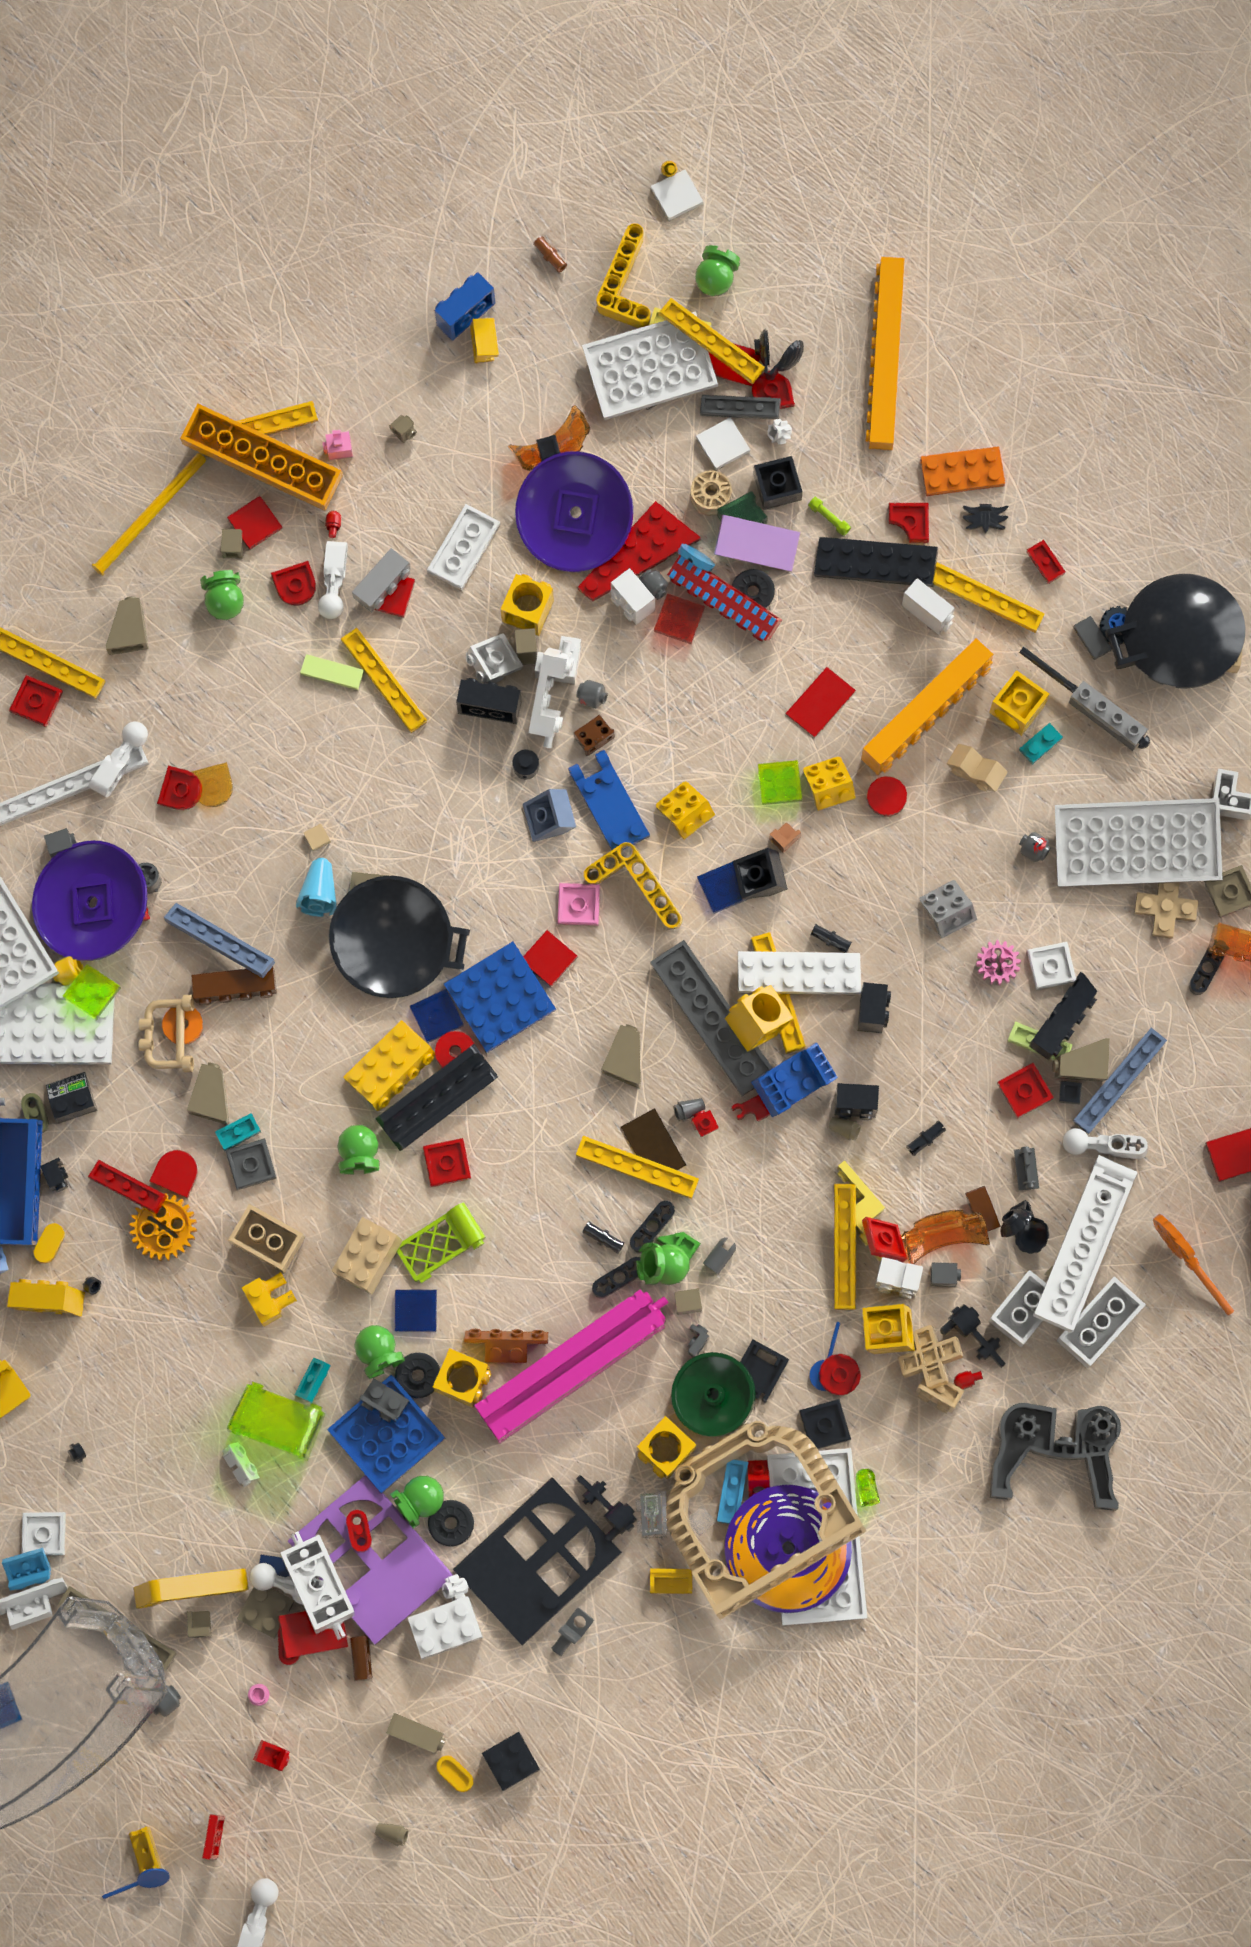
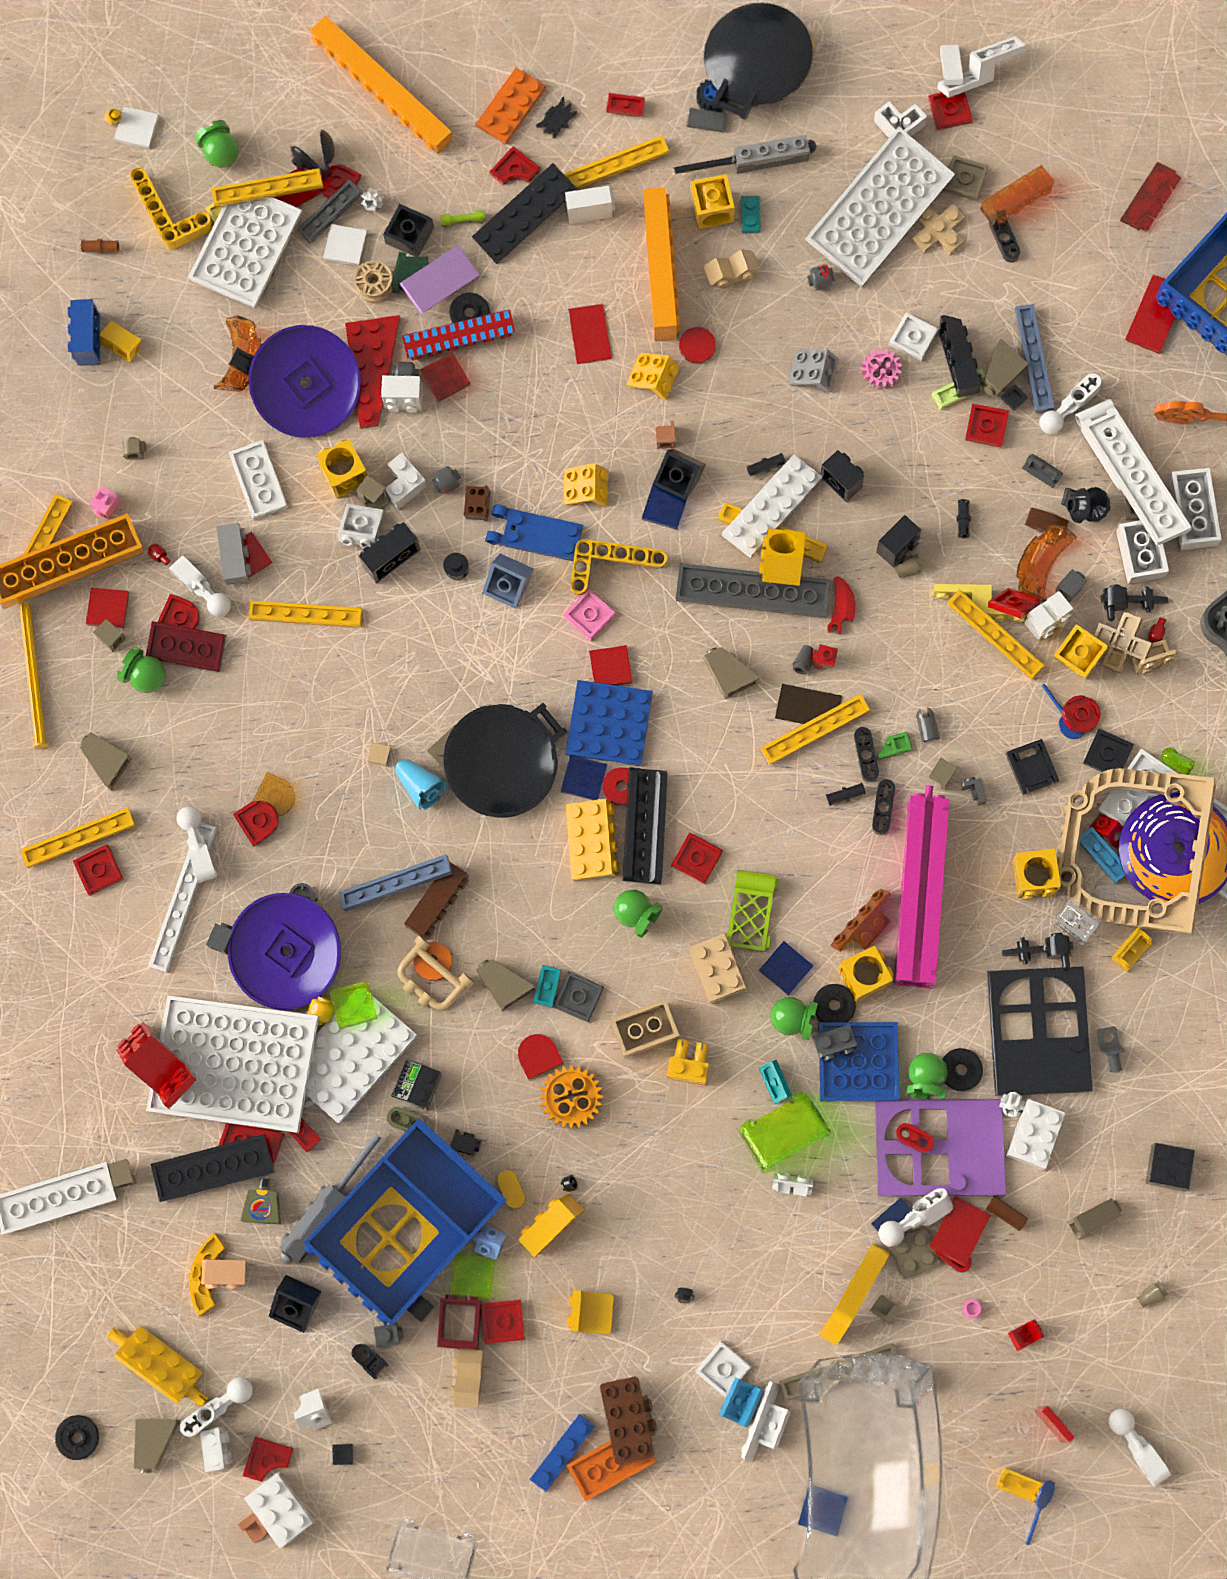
camera: 45 degrees left, 0 degrees up
(127, 1186) = (519, 1098): red tile -> none
(275, 610) = (186, 646): none -> dark red tile
(327, 1605) = (953, 1201): white brick -> none
(332, 672) = (267, 644): yellowish green tile -> none
(454, 1773) = (1144, 1215): yellow tile -> none
(544, 720) = (437, 525): white brick -> none
(662, 1264) = (902, 768): bright green tile -> none
(698, 558) = (412, 328): dark azure tile -> none
(713, 1394) = (1024, 810): dark green dish -> none
(779, 782) = (624, 407): clear neon green plate -> none
(794, 1079) = (846, 570): blue plate -> none

